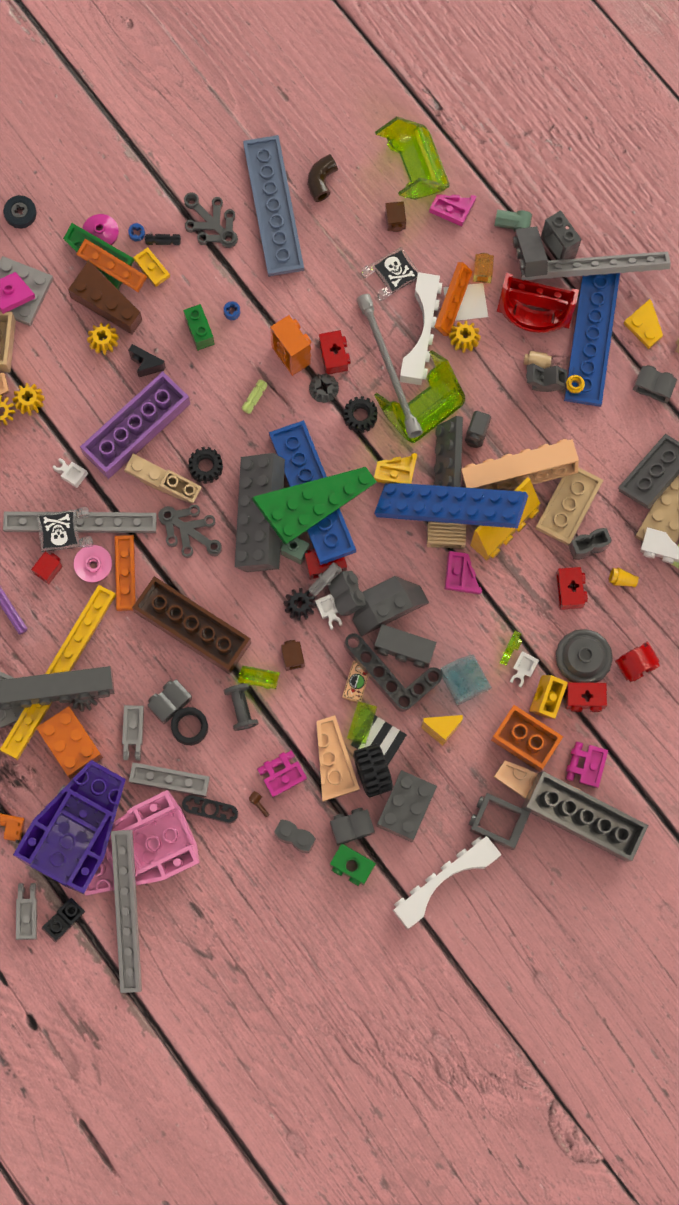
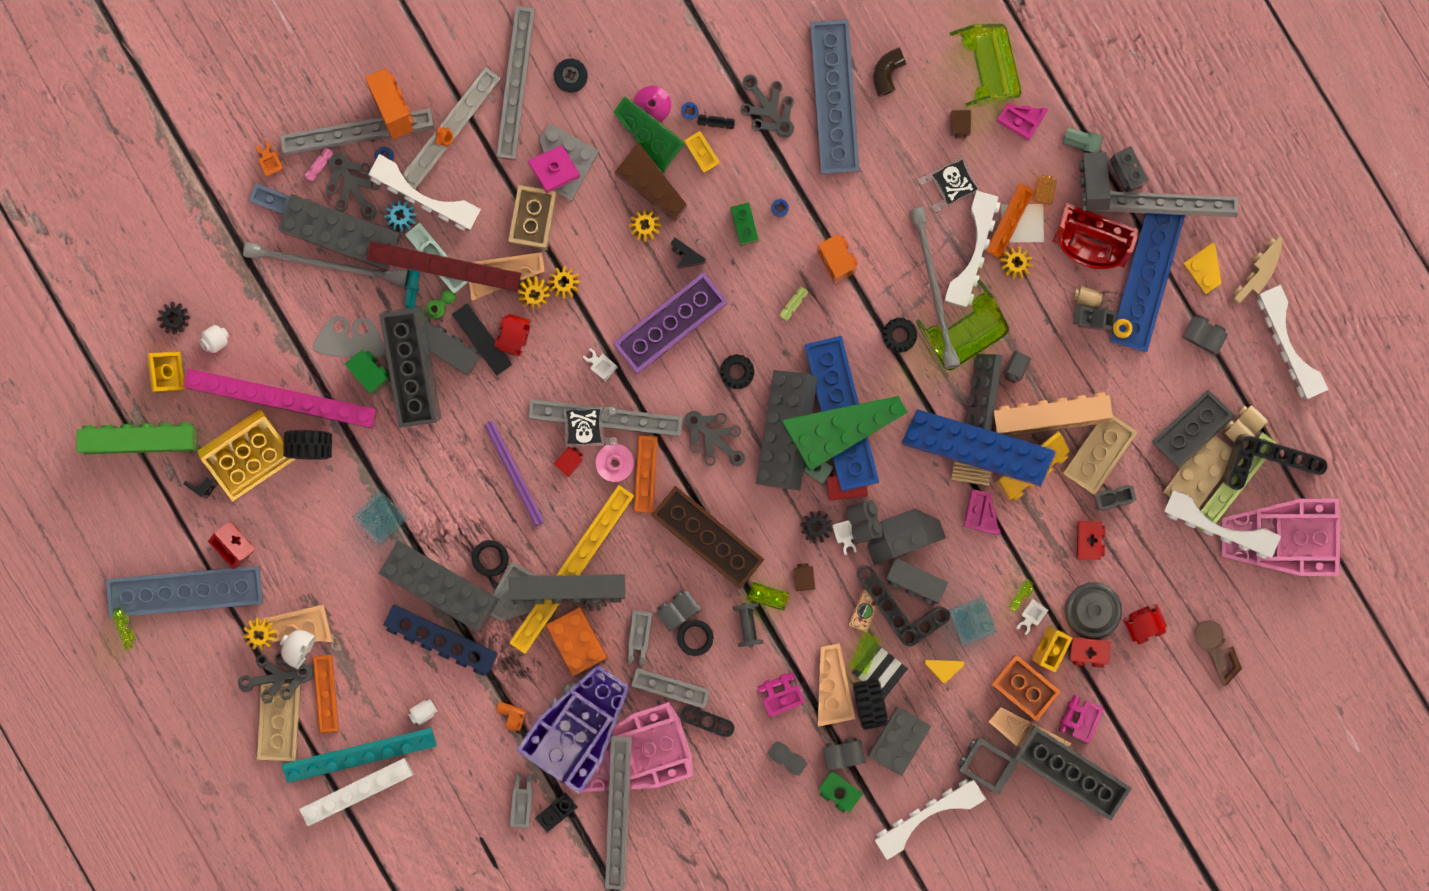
camera: 15 degrees right, 10 degrees up
(111, 265) = (661, 148): orange tile -> none
(162, 480) = (692, 382): tan slope -> none
(254, 799) = (752, 715): reddish brown hand -> none
(320, 395) = (873, 306): dark grey gear -> none
(325, 579) = (844, 506): light grey axle -> none
(334, 362) = (877, 254): red brick -> none
(396, 470) = (929, 398): yellow wing -> none
(620, 577) = (1143, 535): yellow cone -> none

